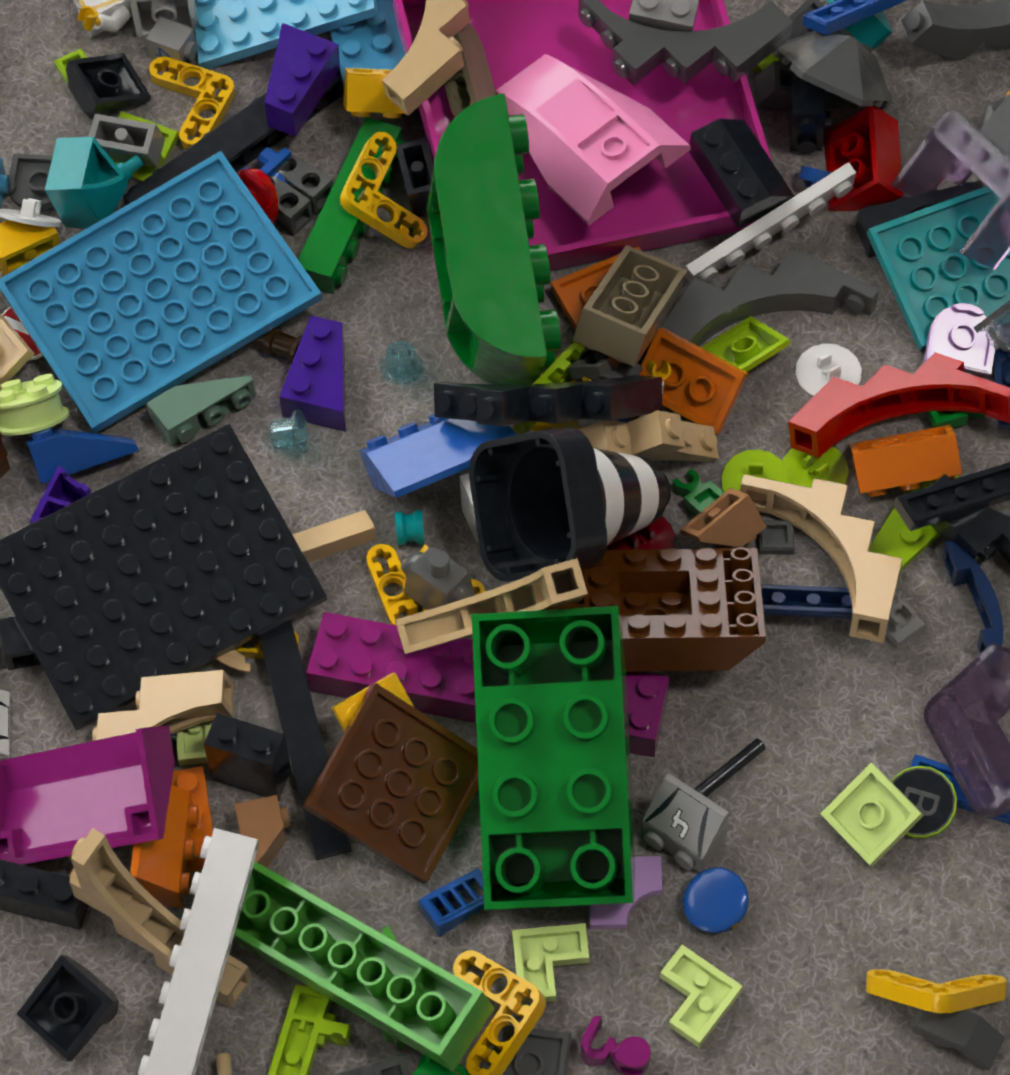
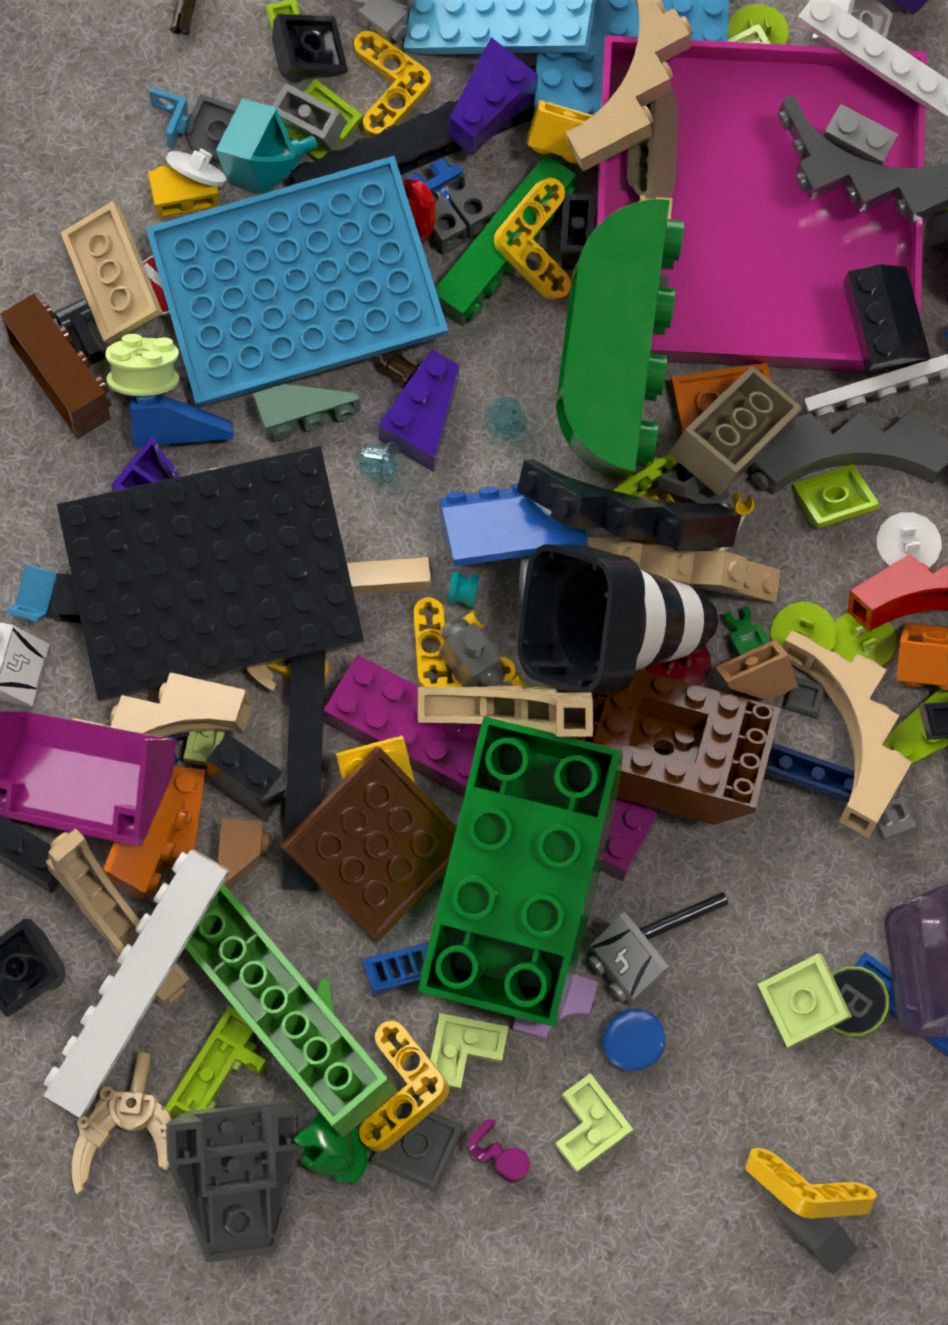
camera: 10 degrees right, 10 degrees up
(586, 134) = (747, 238): bright pink wedge -> none
(699, 381) = (780, 524): orange plate -> none

